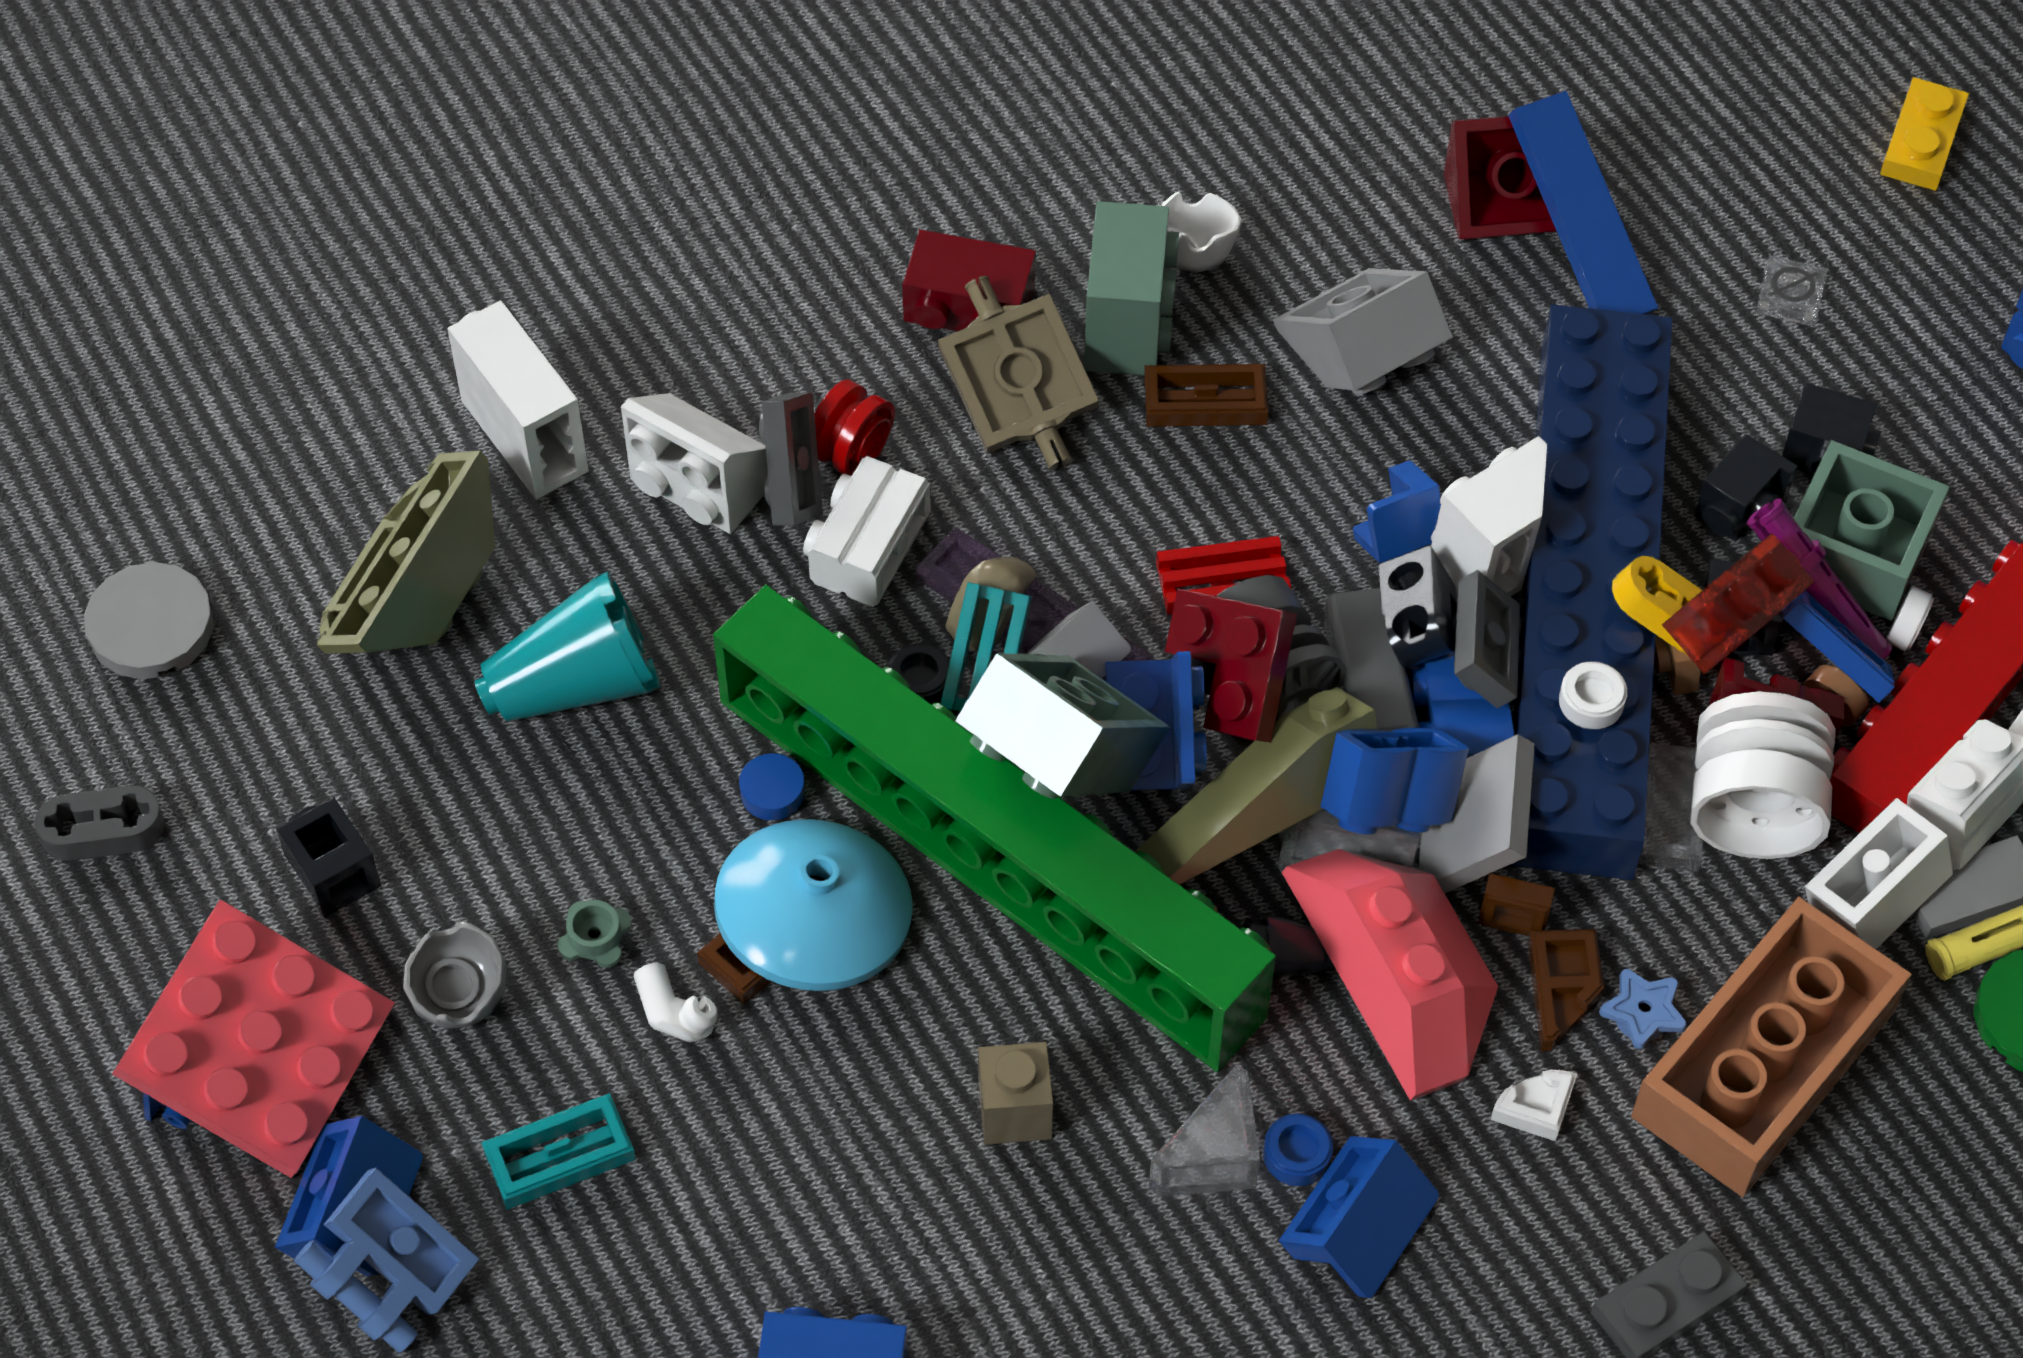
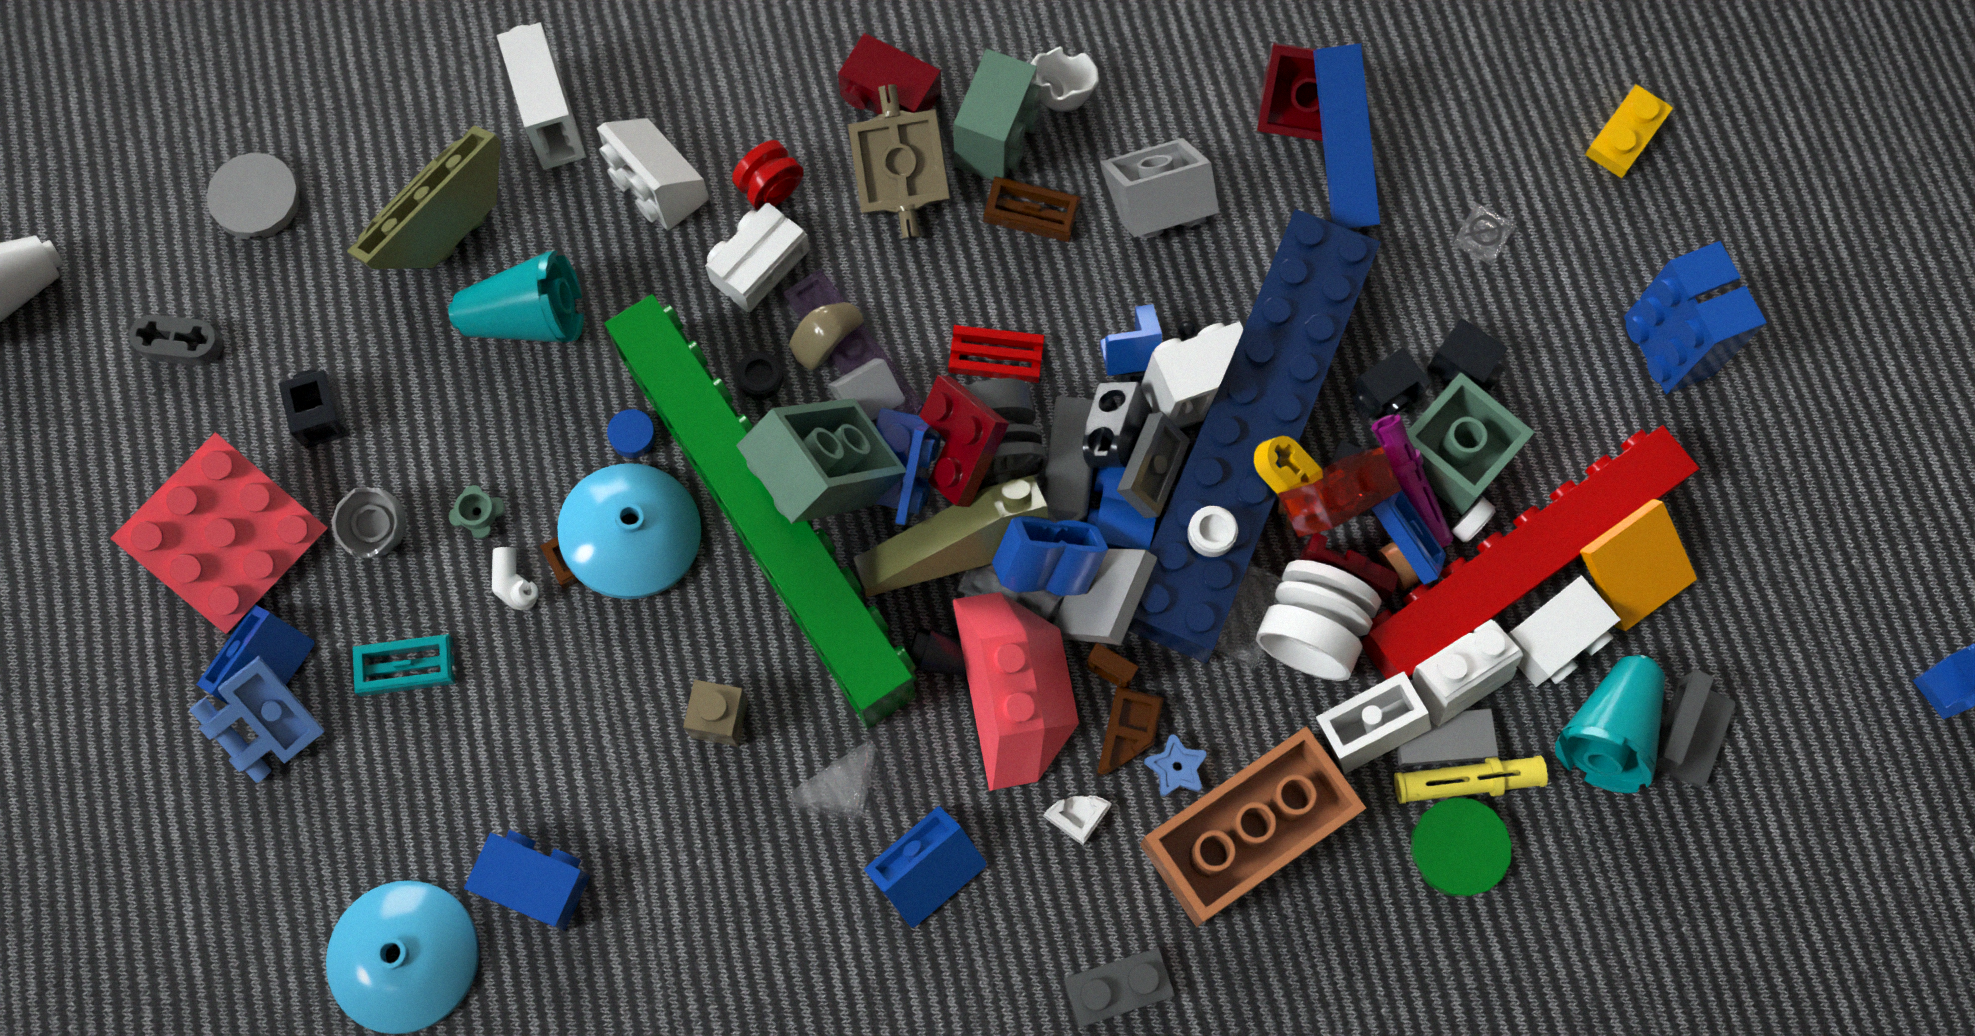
camera: 15 degrees right, 15 degrees up
(792, 458) = (715, 191): dark grey plate -> none
(964, 632) = (792, 360): teal tile -> none
(1298, 1149) = (900, 804): blue tile -> none

